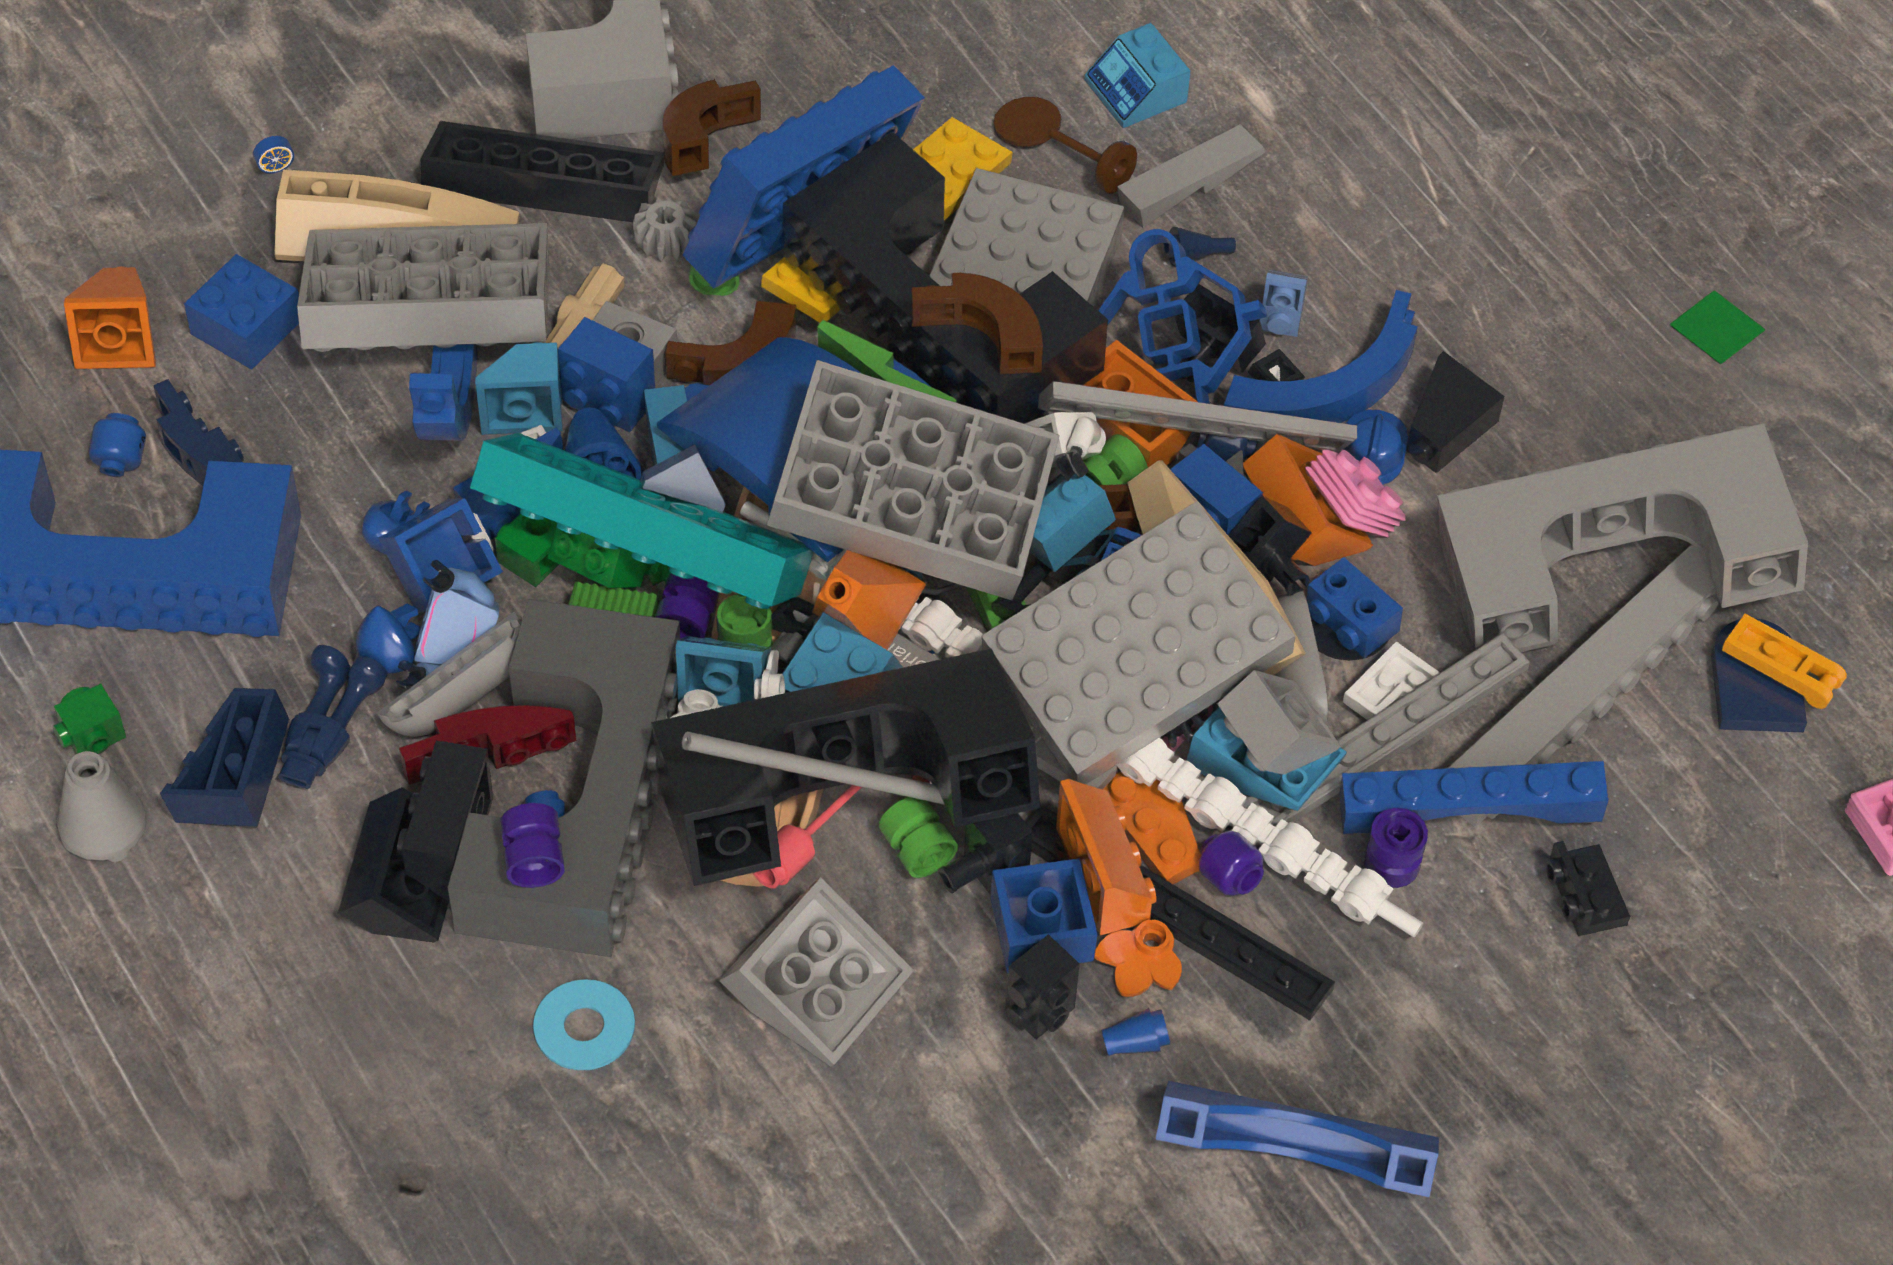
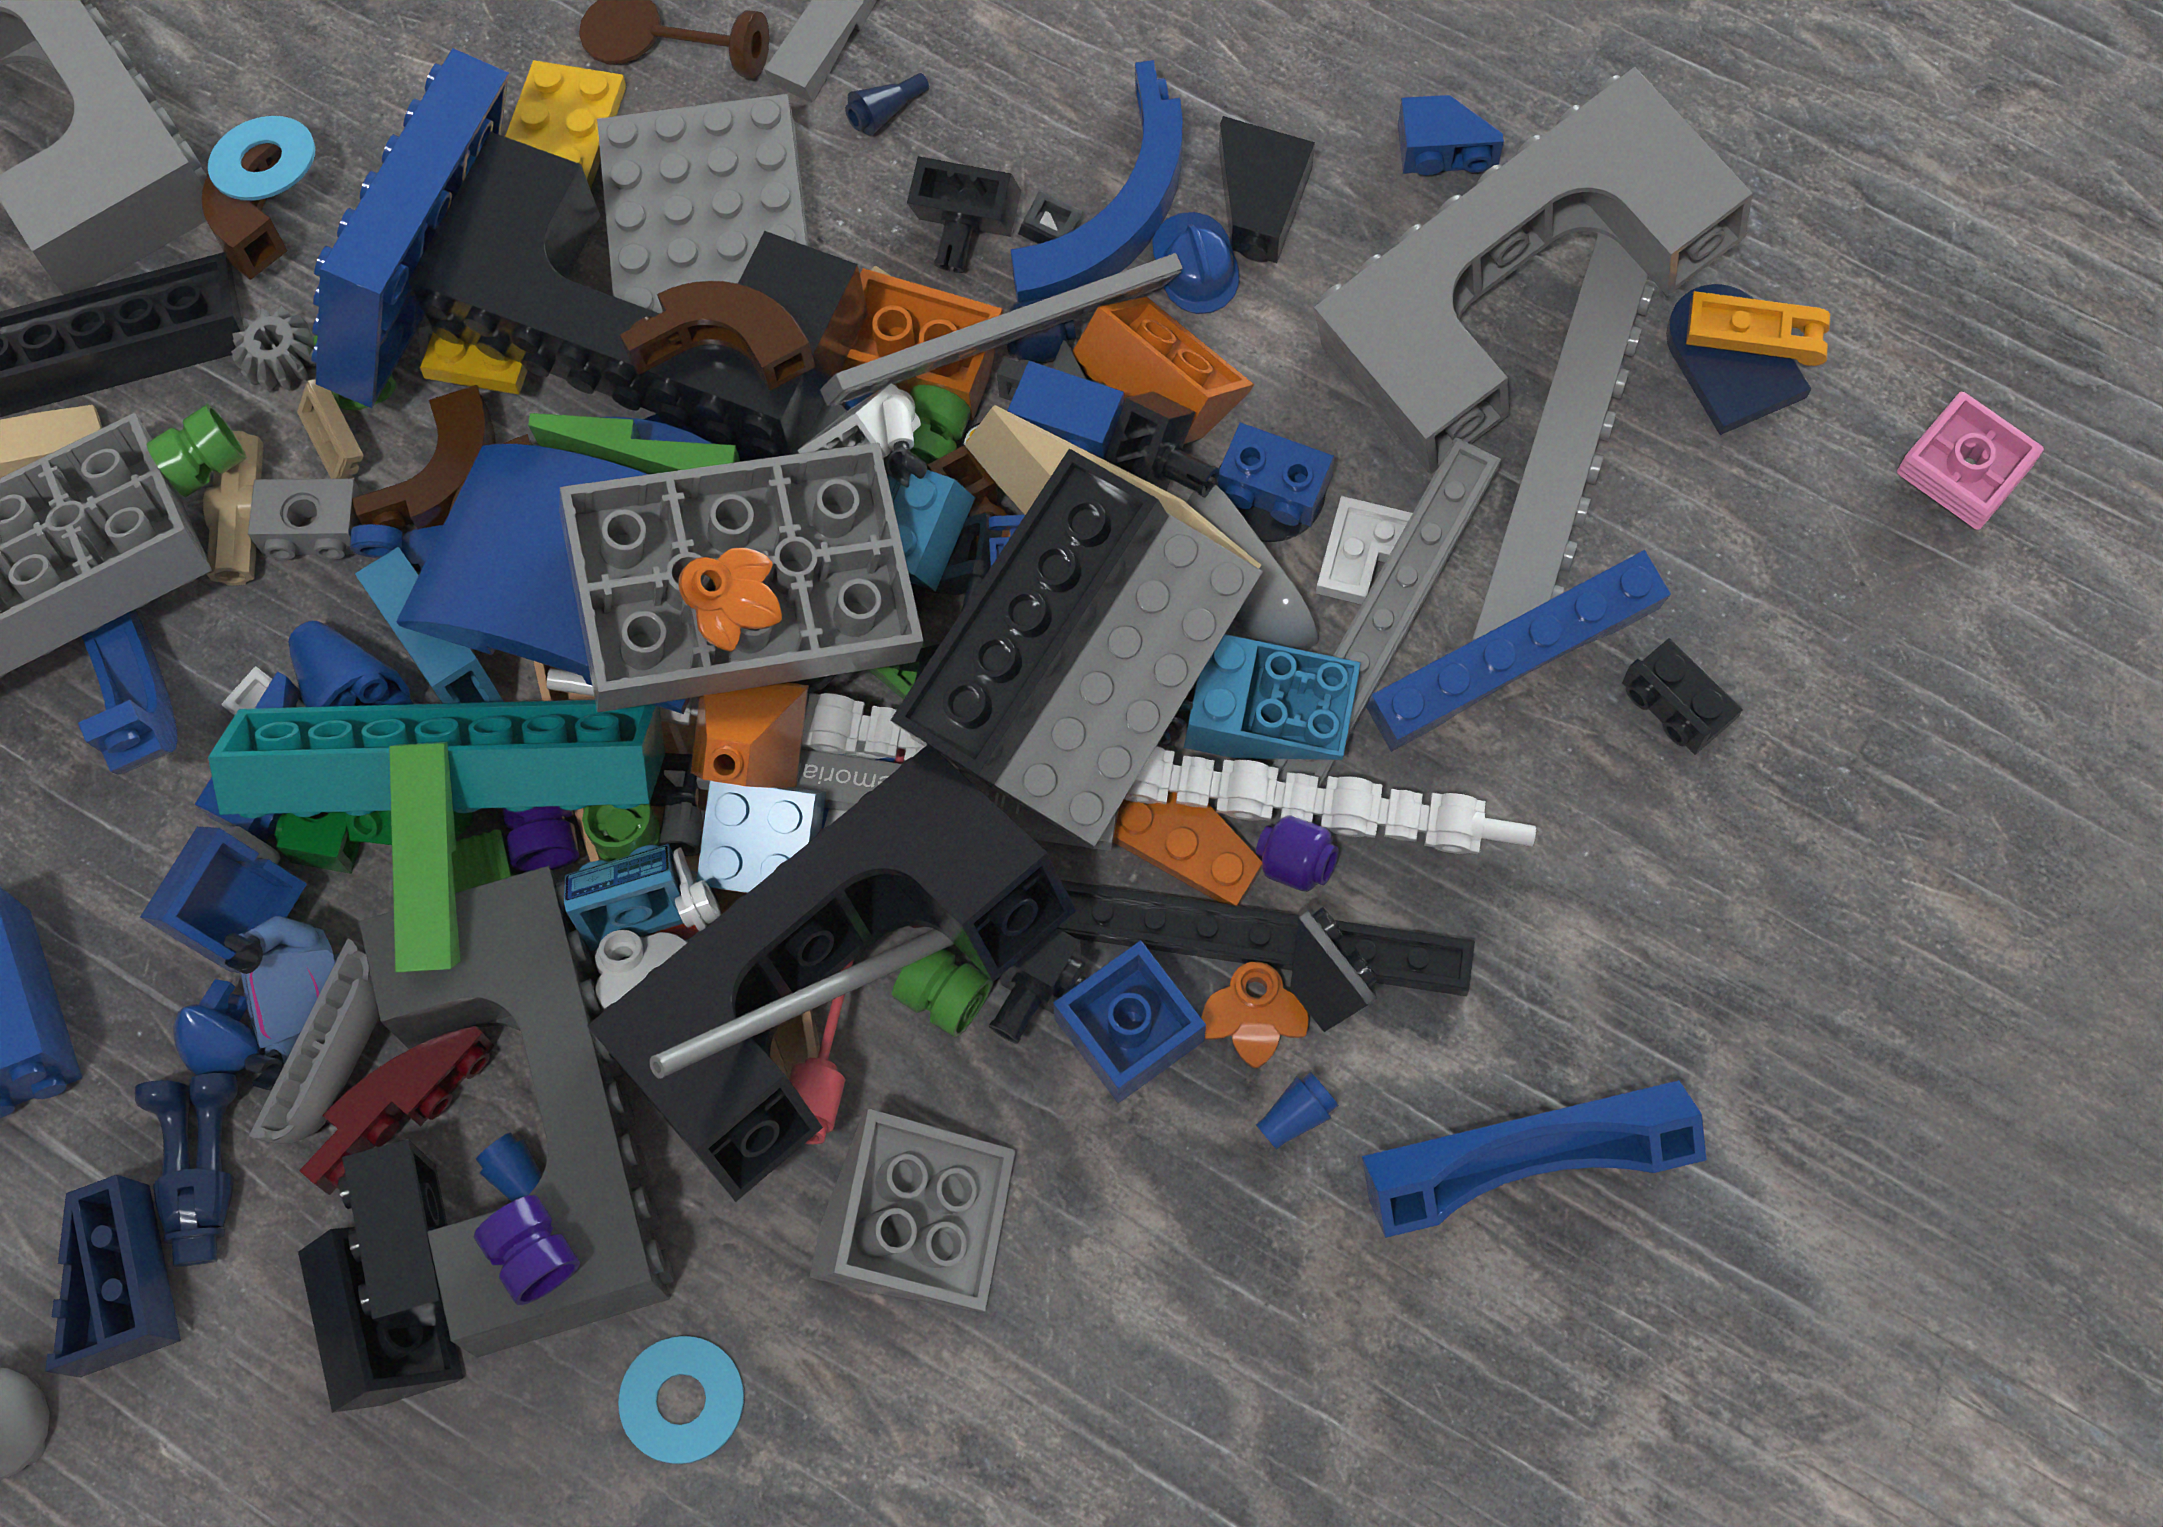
camera: 20 degrees left, 15 degrees up
(386, 516) = (138, 876): blue piece -> none
(521, 390) = (213, 640): dark azure slope -> none
(576, 262) = (196, 450): none -> bright green wheel
(594, 568) = (423, 858): none -> bright green slope
(606, 373) = (300, 574): blue brick -> none
(670, 373) = (375, 540): none -> blue tile
(675, 293) = (329, 432): none -> tan tile
(684, 478) = (464, 683): sand blue slope -> none
(696, 105) = (295, 161): none -> medium azure gear
(903, 484) = (738, 596): none -> orange plate
(1042, 988) = (1175, 1117): black brick -> none
(1108, 590) = (1031, 616): none -> black arch
(1110, 863) = (1145, 905): orange slope -> none
(1189, 275) = (908, 154): blue piece -> none
(1204, 944) = (1324, 975): none -> black slope
(1276, 723) = (1278, 674): light grey slope -> none
(1283, 302) = (1017, 130): medium blue slope -> none
(1356, 492) = (1213, 335): bright pink brick -> none
(1396, 846) = (1464, 749): dark purple wheel -> none
(1606, 430) = (1445, 136): none -> blue slope

